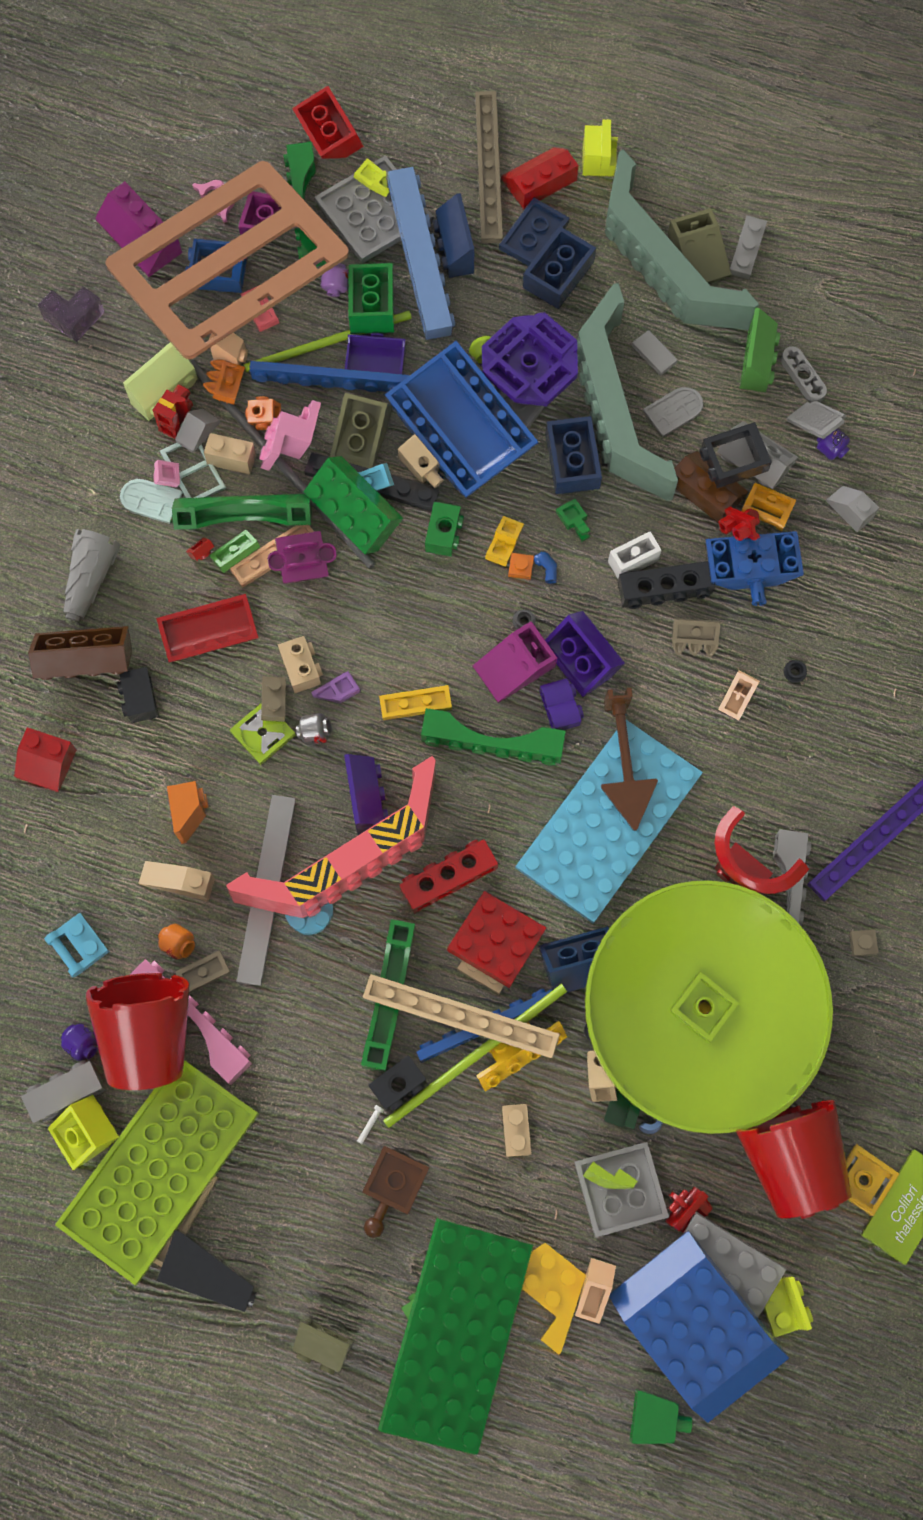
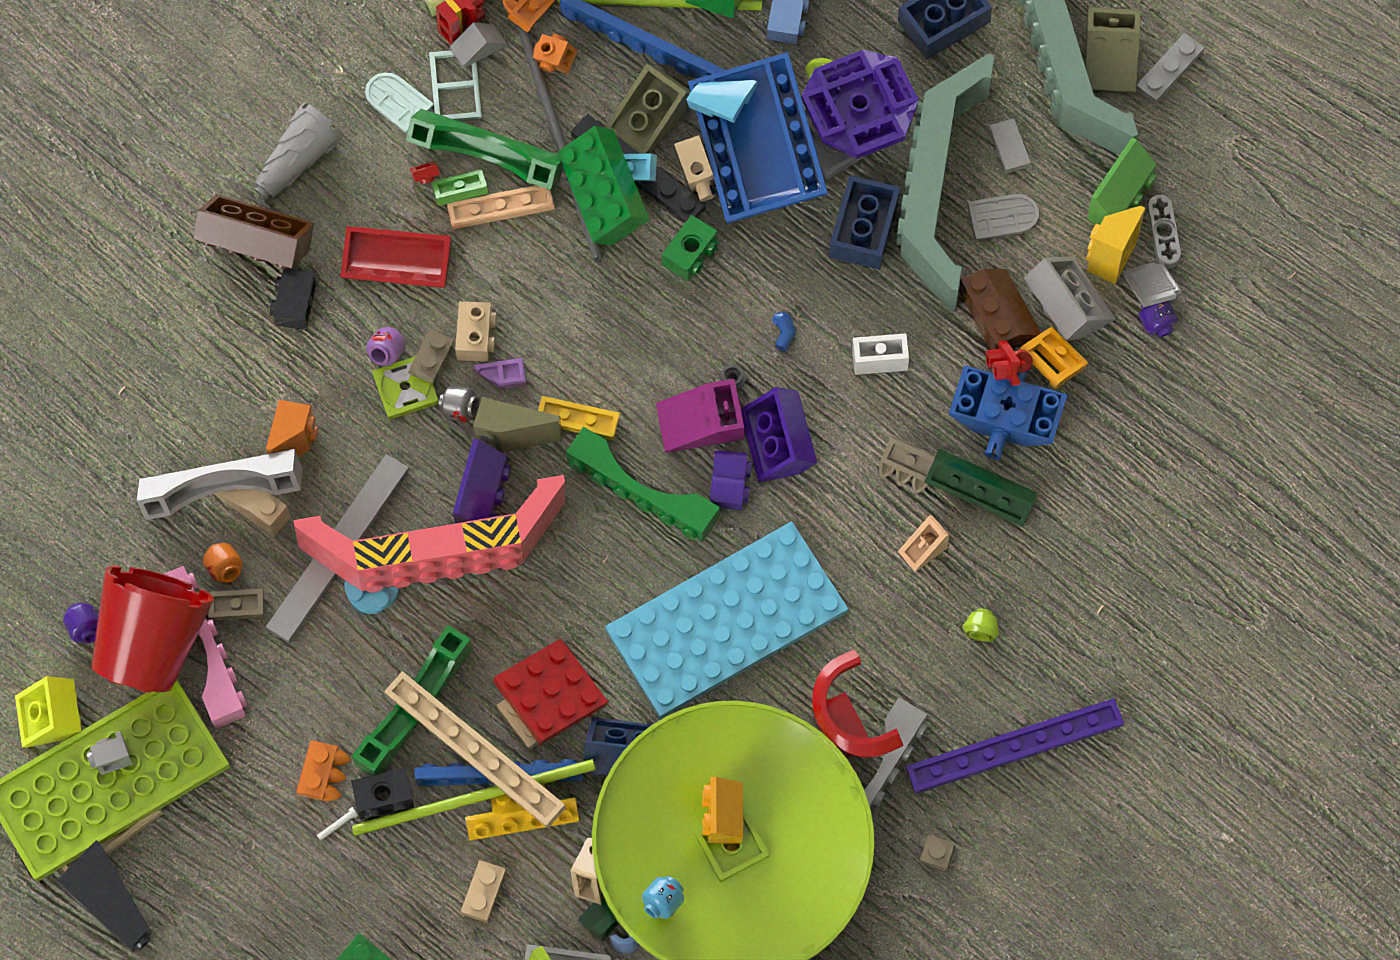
camera: 25 degrees right, 5 degrees down
(43, 759) = (169, 326): red slope -> none
(63, 1090) = (27, 666): light grey brick -> none
(83, 939) = (131, 527): medium azure plate -> none
(107, 899) = (169, 492): none -> light grey arch
(153, 1149) = (109, 754): none -> light grey brick
(166, 473) = (424, 79): bright pink tile -> none
(230, 453) = (500, 83): tan brick -> none
(232, 705) = (385, 346): none -> medium lavender head
(289, 435) = (568, 86): bright pink bracket -> none
(301, 557) = (526, 220): magenta piece -> none
(335, 1084) = (320, 771): none -> orange plate
(367, 731) = (514, 427): none -> olive slope
(375, 353) = (703, 35): dark purple container -> none
(393, 1183) = (334, 890): reddish brown plate -> none
(419, 397) = (721, 98): none -> medium azure slope
(419, 899) = (518, 618): red brick -> none
(504, 541) = (751, 286): yellow slope -> none
(521, 566) = (756, 319): orange plate -> none
(574, 516) = (836, 288): green plate -> none
(628, 796) = (757, 601): reddish brown piece -> none
(674, 576) = (891, 387): black brick -> none
(677, 1079) = (663, 897): none -> dark azure head
(693, 986) = (724, 811): none -> light orange slope
(757, 448) = (1033, 308): black window -> none
(761, 632) = (980, 487): none -> dark green panel
(778, 398) = (1113, 243): none -> yellow slope
(797, 665) = (1001, 536): black plate -> none
(814, 743) = (981, 626): none -> lime cone
(853, 507) = (1148, 395): light grey slope -> none

